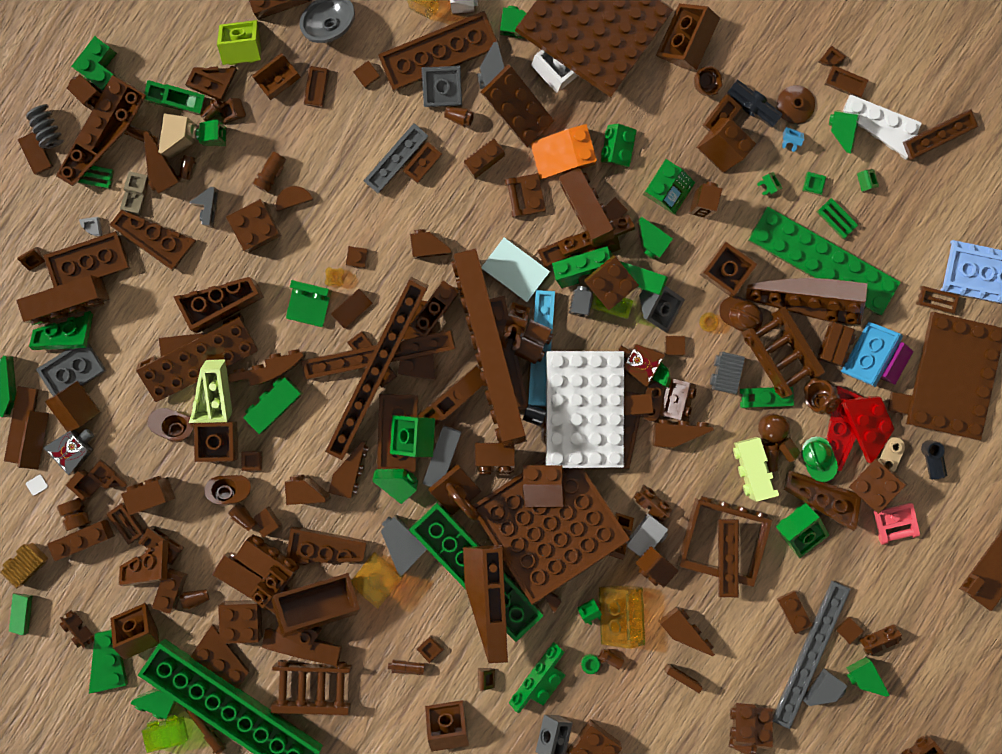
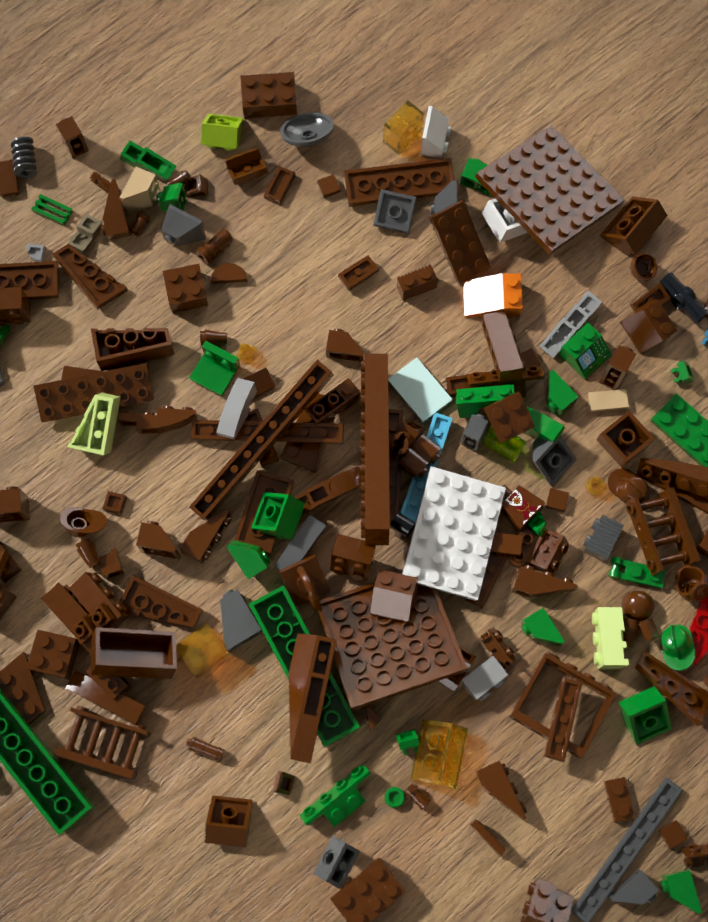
camera: 15 degrees right, 15 degrees down
(93, 62) = (88, 115): green brick -> none
(102, 129) = (76, 169): reddish brown wedge -> none
(170, 425) = (48, 446): reddish brown piece -> none
(193, 599) = (14, 620): reddish brown cone -> none
(208, 200) = (149, 257): dark grey slope -> none
(211, 81) = (186, 156): reddish brown wing -> none
(215, 441) = (86, 472): reddish brown brick -> none
(230, 164) = (182, 227): none -> dark grey slope
(272, 404) = (151, 454): green brick -> none
(296, 270) = (213, 337): none -> reddish brown cone
(342, 341) = (236, 408): none -> light grey slope
(356, 257) = (272, 341): reddish brown plate -> none
(396, 158) = (334, 263): dark grey plate -> none
(430, 649) = (234, 736): reddish brown tile -> none
(460, 116) = (404, 241): reddish brown cone -> none
(531, 194) = (452, 329): reddish brown plate -> none
(618, 145) = (546, 303): green bracket -> none
(648, 161) = (570, 324): none -> light grey slope
(656, 567) = (487, 709): reddish brown brick -> none
(688, 475) = (541, 628): none -> green slope
(702, 231) = (608, 400): none -> tan tile

